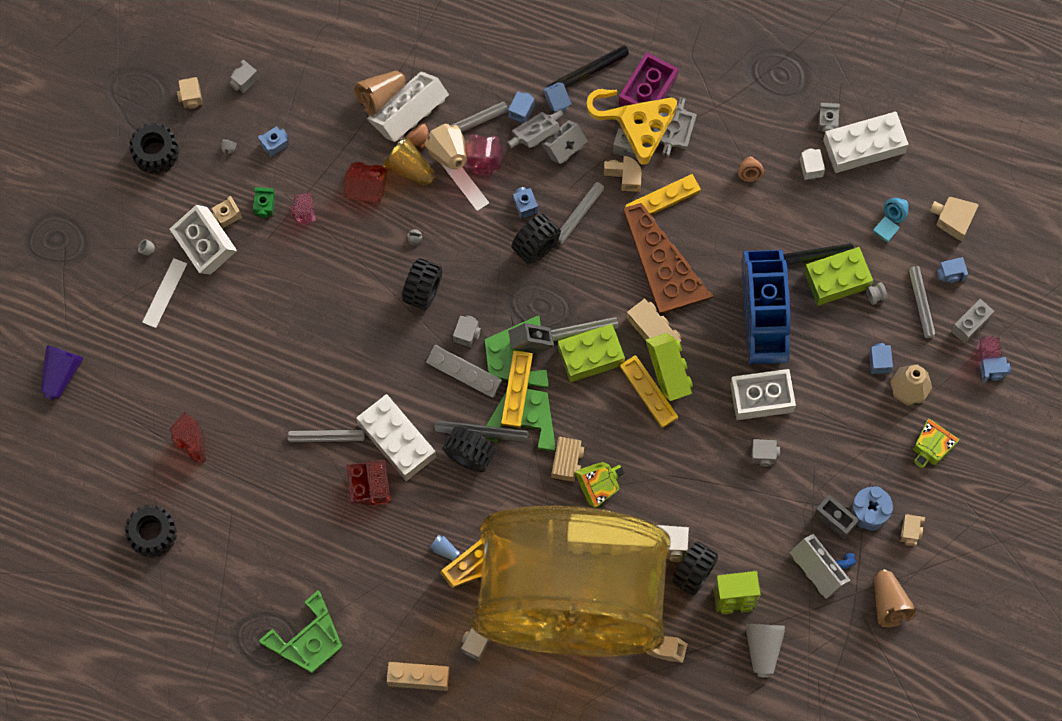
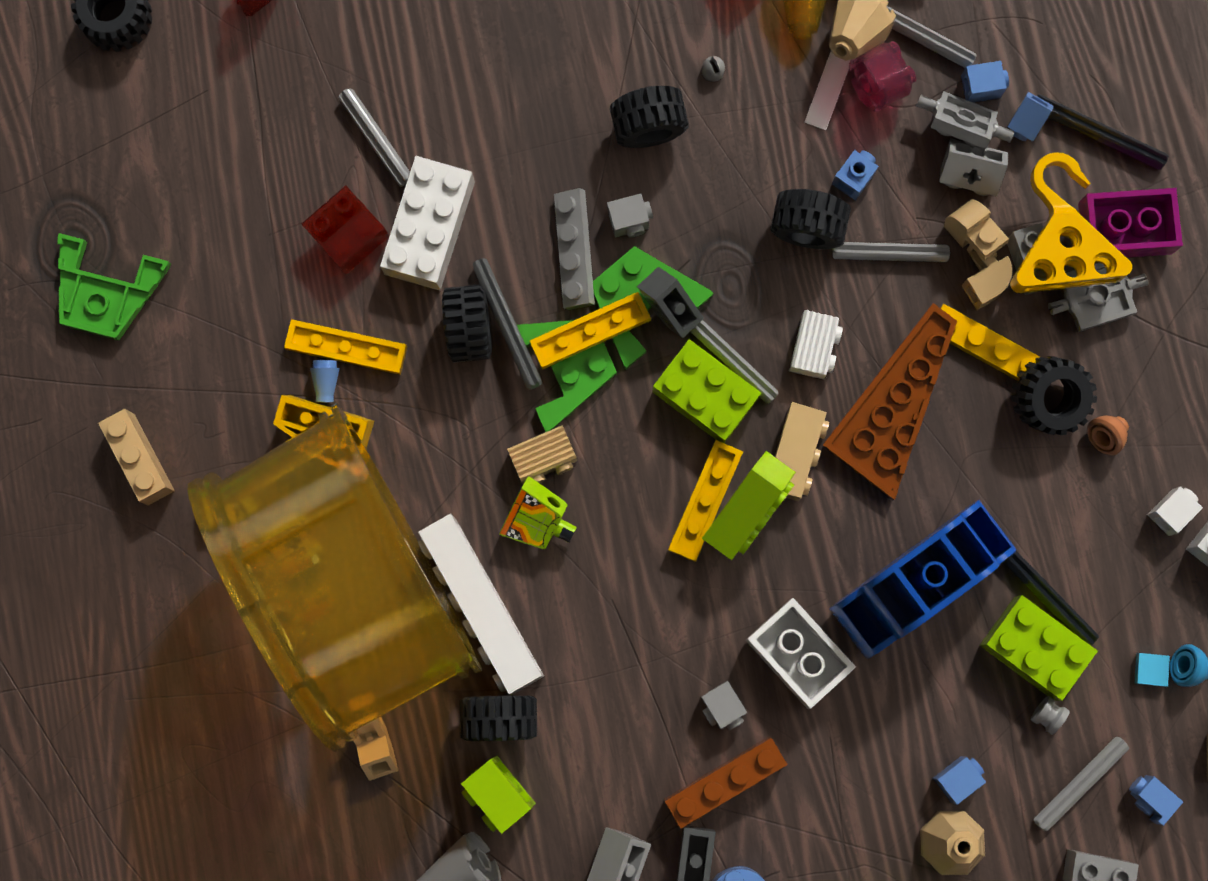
camera: 60 degrees right, 10 degrees up
(434, 525) = (345, 347): none -> yellow plate
(596, 161) = (973, 226): none -> tan brick
(603, 282) = (815, 344): none -> white brick
(721, 172) = (1075, 402): none -> black tyre
(805, 476) = (725, 782): none -> dark orange brick

